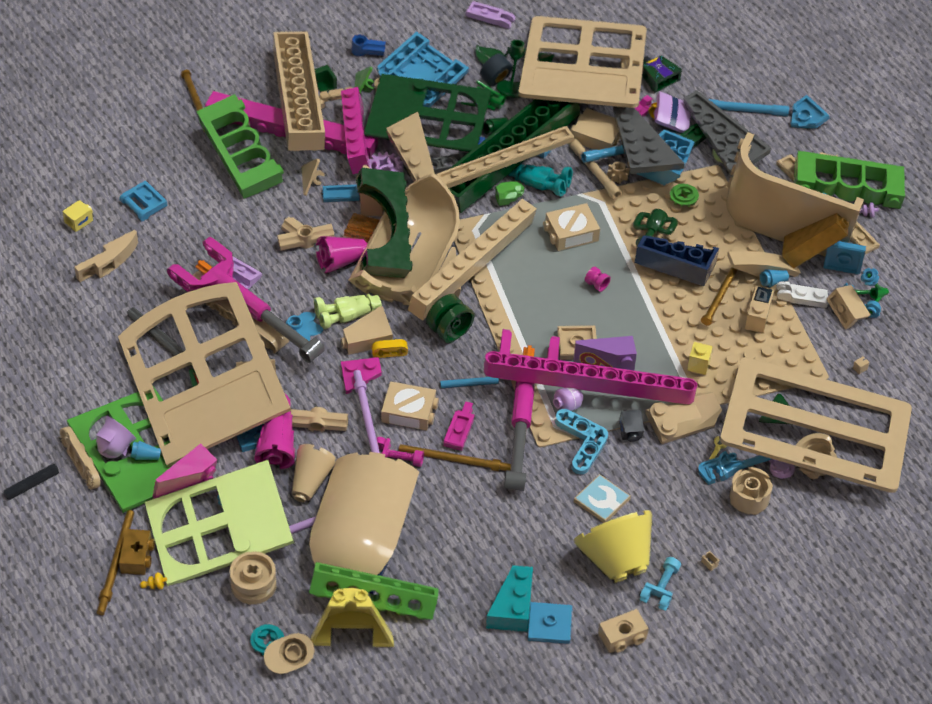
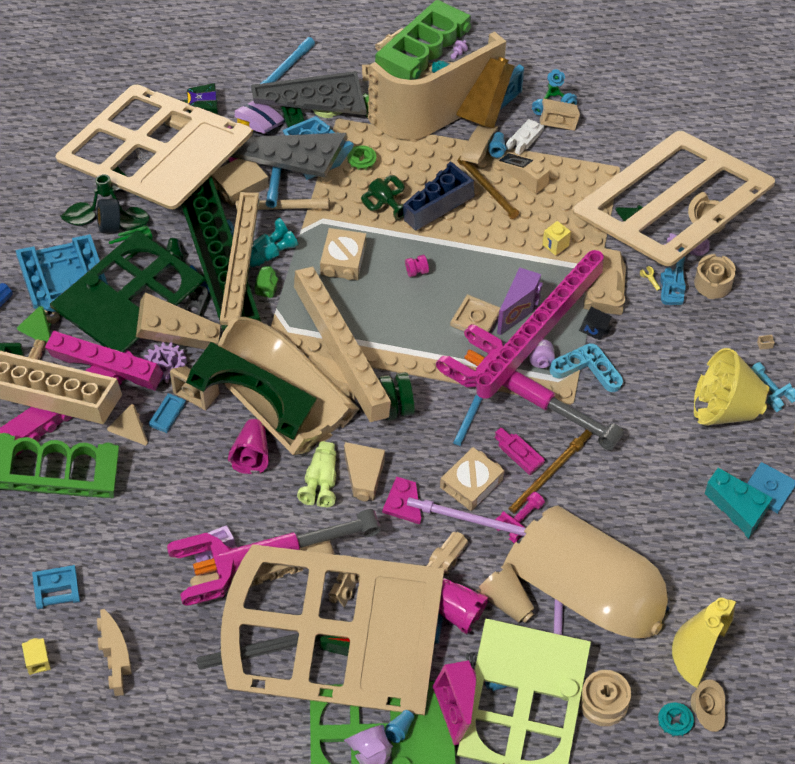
camera: 60 degrees left, 5 degrees up
(301, 235) = (196, 470): tan piece -> none
(305, 324) = (318, 518): dark azure plate -> none
(361, 227) = (228, 414): clear orange plate -> none
(384, 586) = (680, 603): bright green brick -> none
(389, 348) = (393, 462): yellow beam -> none
(490, 14) = (26, 187): lavender hinge -> none
(602, 498) = (657, 385): tile -> none
(618, 172) = (298, 189): tan gear -> none
(808, 114) = (326, 29): dark azure plate -> none
(860, 365) = (622, 139): tan piece -> none

